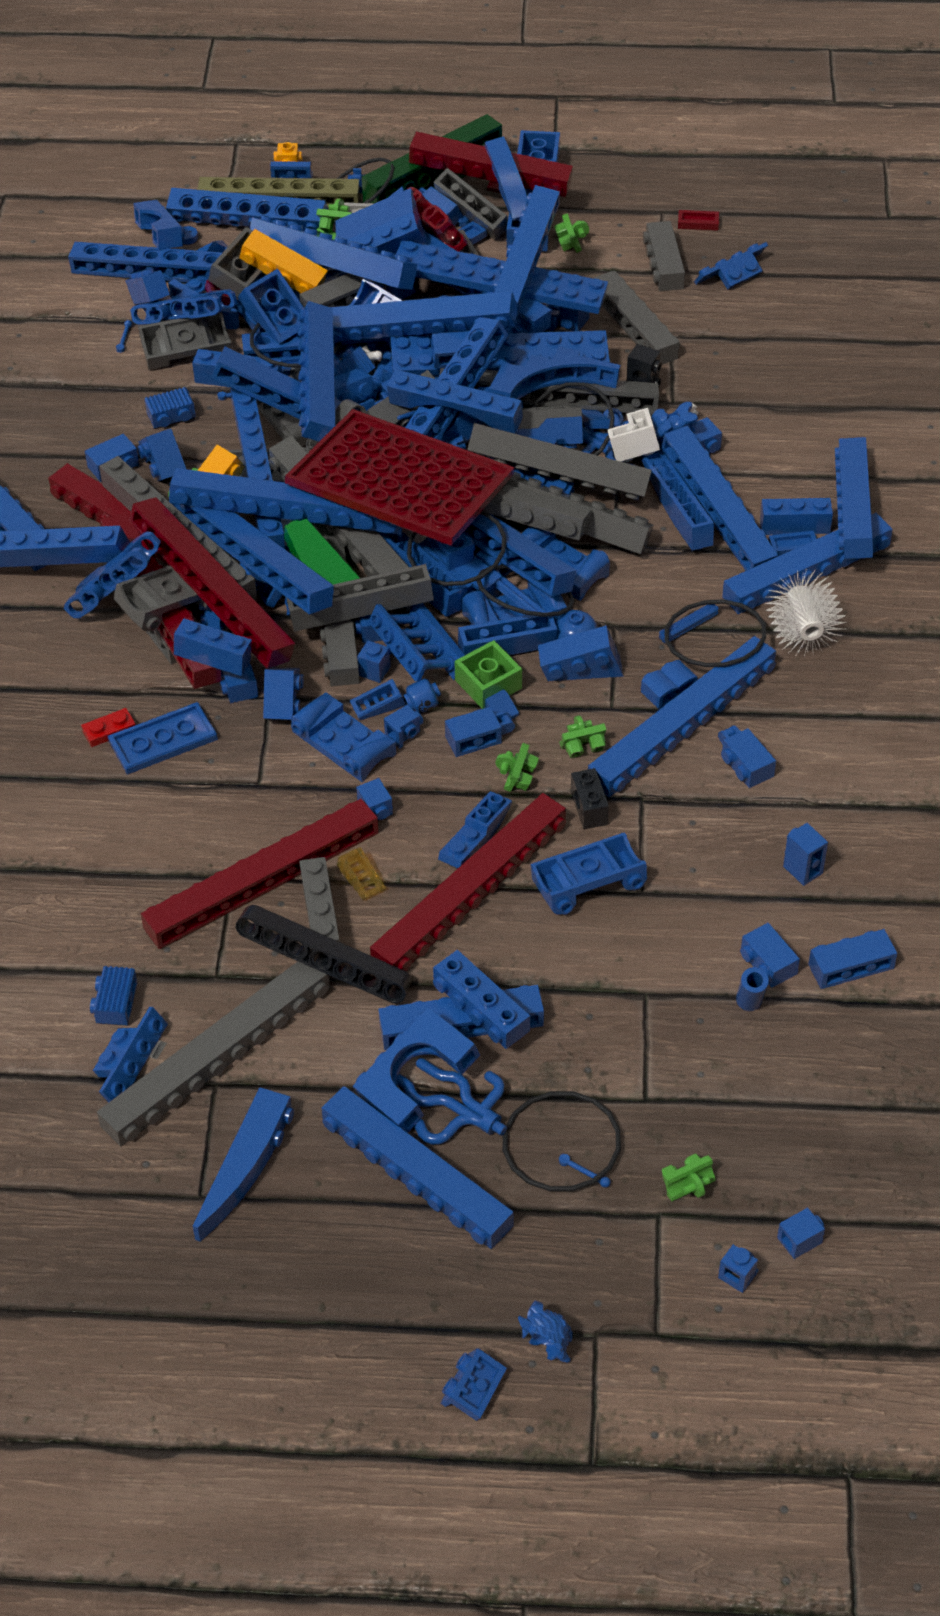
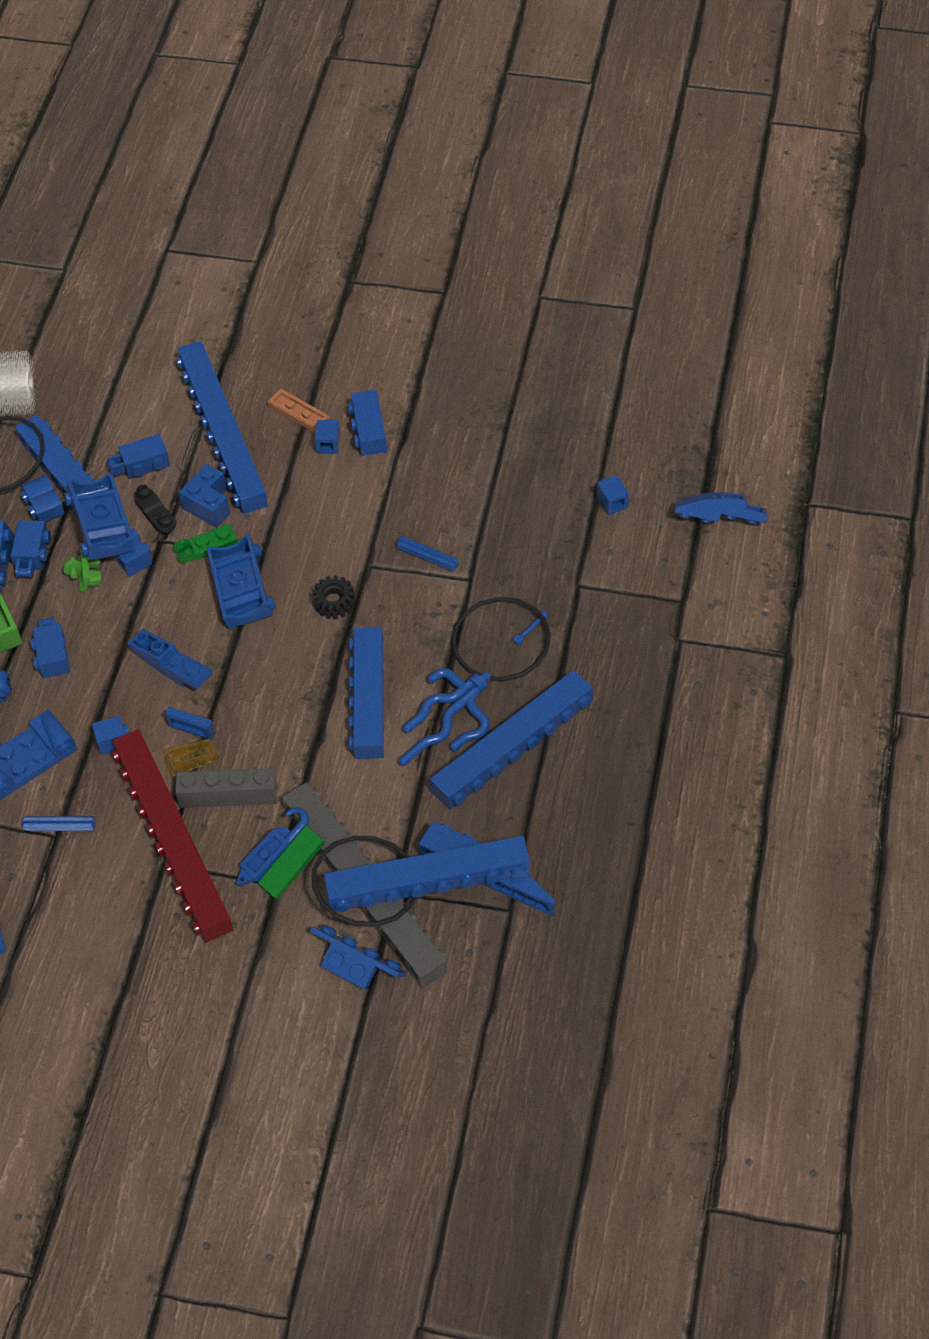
camera: 80 degrees left, 5 degrees up
(114, 995) = (285, 965): blue brick -> none
(211, 1093) = (334, 913): none -> black piece
(214, 1097) = (427, 874): none -> blue brick
(232, 979) = (291, 862): none -> green tile
(247, 959) = (270, 849): none -> blue plate
(269, 782) = (58, 823): none -> blue axle
(310, 954) = (288, 781): black beam -> none
(397, 864) = (190, 723): none -> blue tile
(402, 725) = (26, 704): blue brick -> none
(425, 1035) = (431, 753): blue arch -> none
(470, 883) = (229, 673): dark red brick -> none
(473, 1383) = (715, 721): blue bracket -> none
(481, 999) = (367, 663): blue brick -> none
(502, 702) = (25, 627): blue slope -> none
(514, 765) = (105, 622): bright green hips -> none
(547, 1329) = (682, 660): blue hair -> none
(587, 978) = (333, 586): none -> black tyre
(589, 798) = (157, 571): black brick -> none
(600, 686) = (30, 547): none -> blue brick
(634, 724) = (100, 517): none -> blue piece
(643, 838) = (197, 546): none -> green hinge
(671, 1049) = (427, 553): none -> blue axle
(677, 783) = (155, 509): none -> black piece
(689, 1178) = (547, 549): bright green hips -> none
(701, 818) = (205, 496): none -> blue brick
(741, 1263) = (636, 532): blue brick -> none
(752, 989) = (391, 484): blue brick -> none
(770, 953) = (353, 473): blue brick -> none
(805, 853) = (263, 430): blue brick -> none
(809, 1363) = (711, 505): none -> blue slope
(820, 921) = (327, 436): none -> blue brick
(823, 812) = (222, 428): none -> blue brick
(857, 891) = (296, 410): none -> nougat tile

